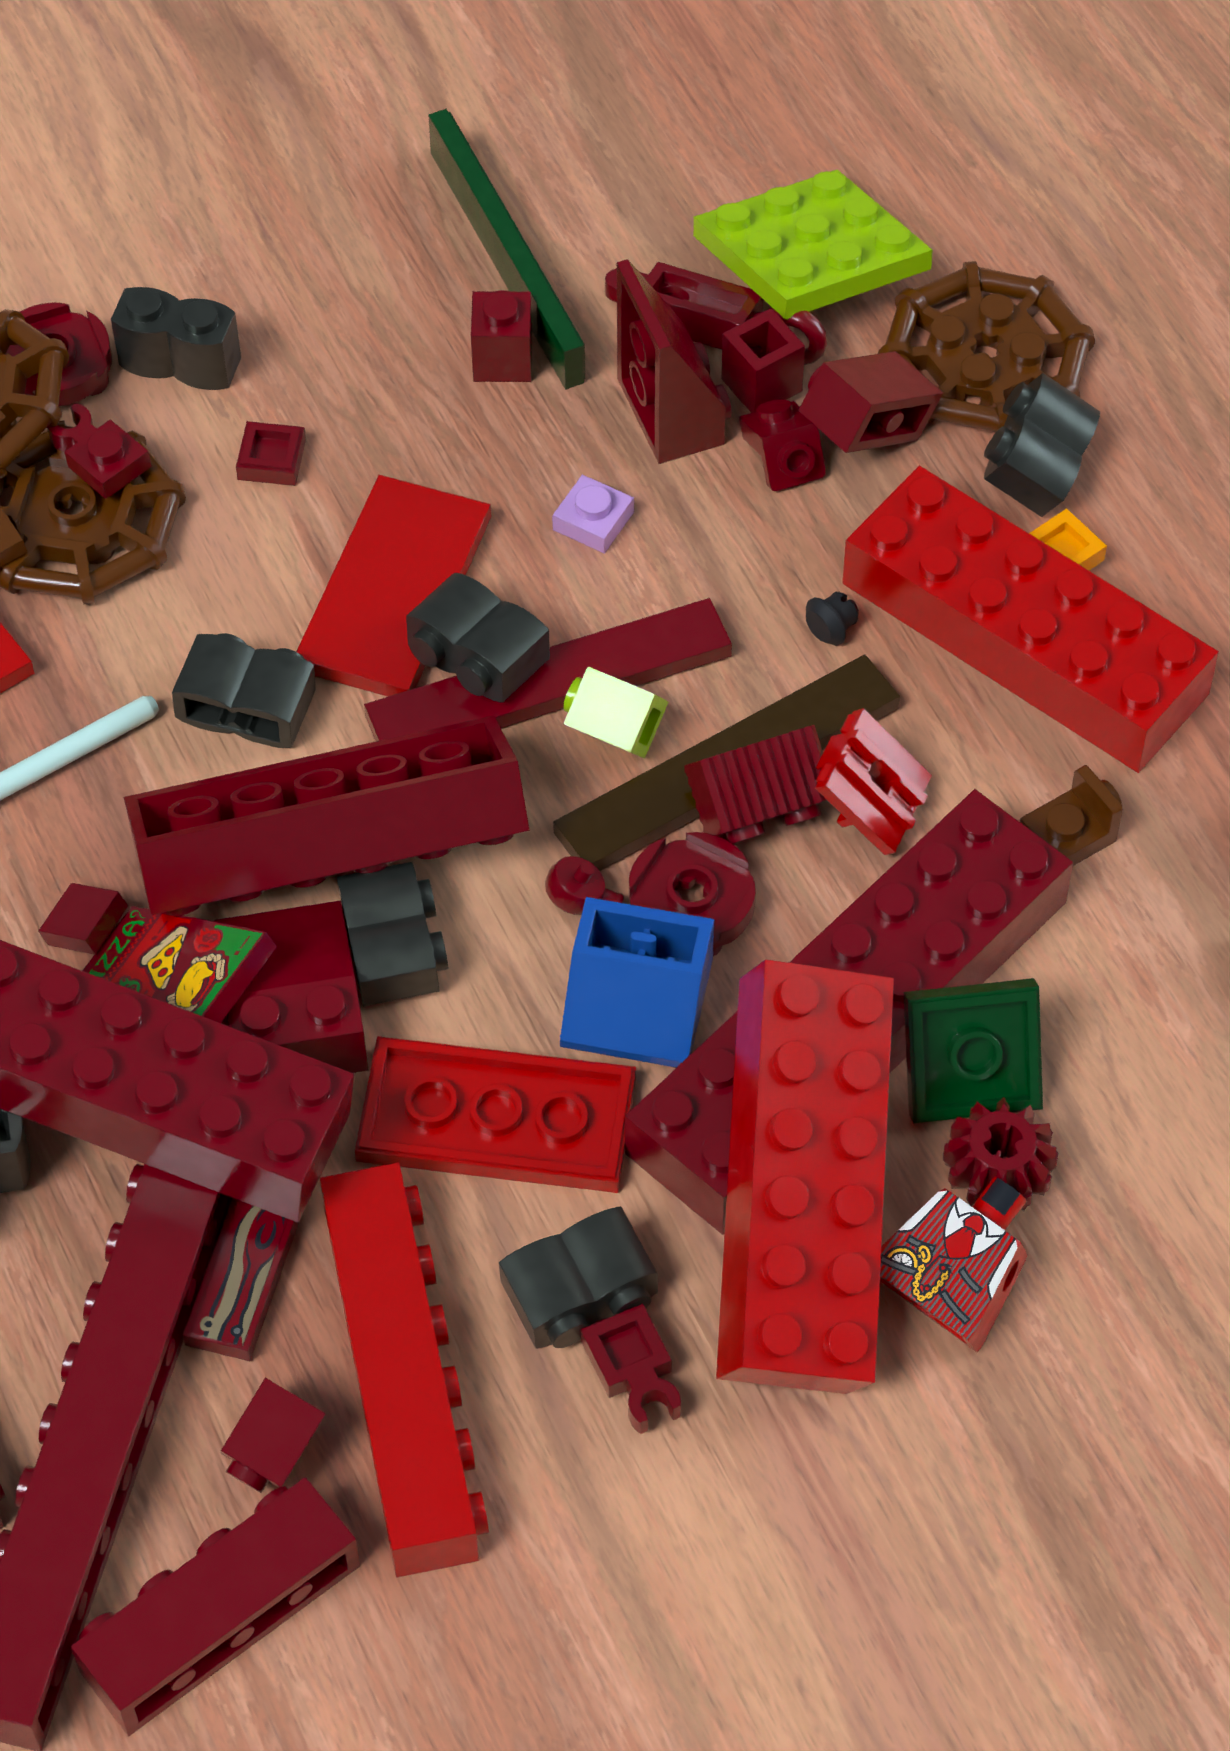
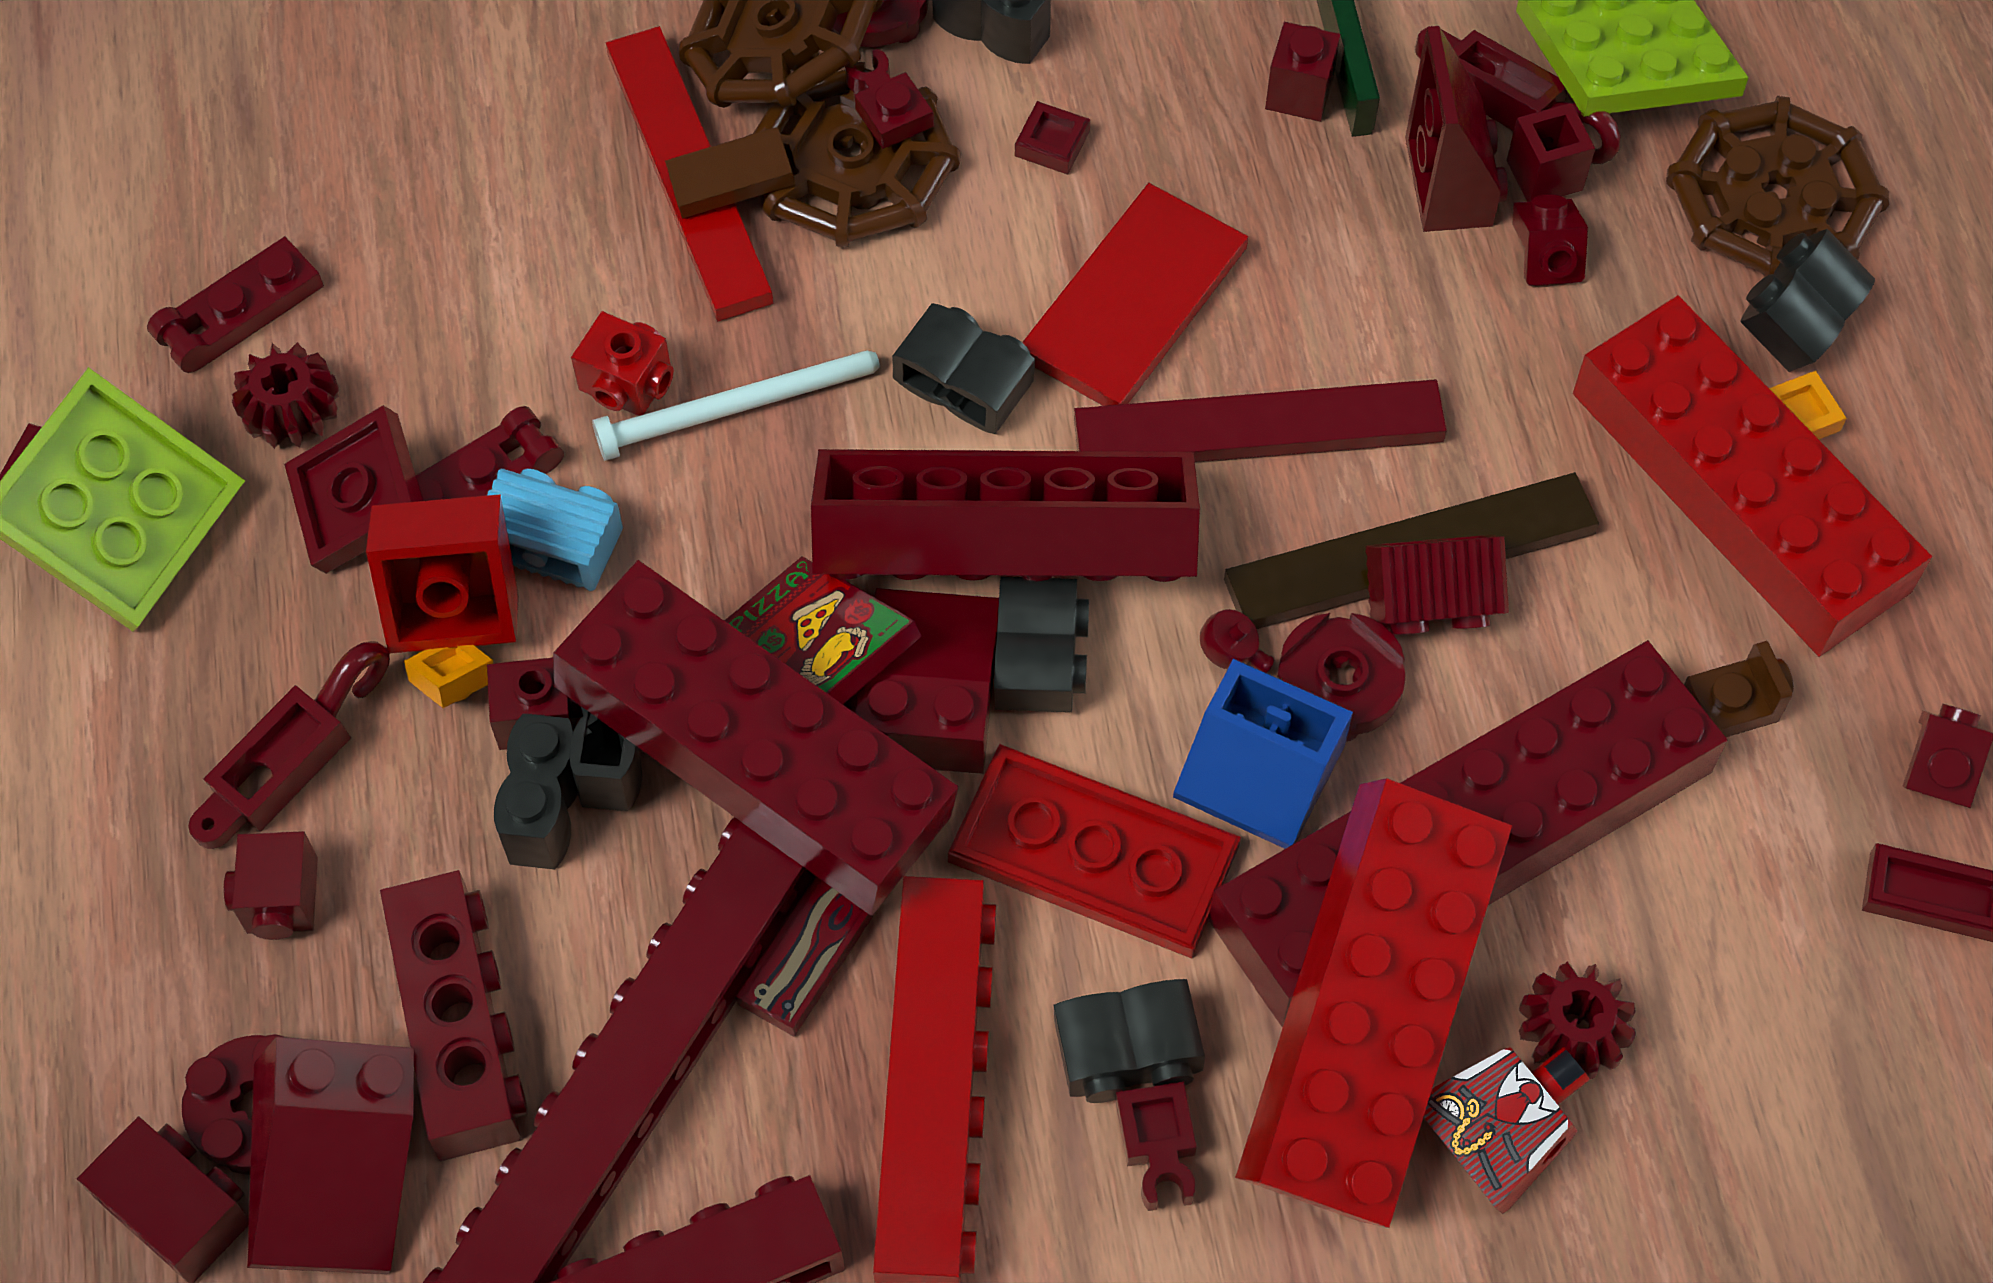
camera: 15 degrees right, 5 degrees up
(83, 918) = (752, 557): dark red tile -> none
(270, 1436) = (789, 1124): dark red brick -> none
(477, 637) = (1199, 369): pearl dark grey brick -> none
(593, 513) = (1345, 268): lavender plate -> none
(614, 711) = (1312, 474): brick -> none
(831, 617) = (1552, 426): black piece -> none
(869, 401) = (1646, 218): dark red brick -> none
(872, 781) = (1575, 610): red piece -> none
(973, 1048) = (1577, 907): dark green tile -> none

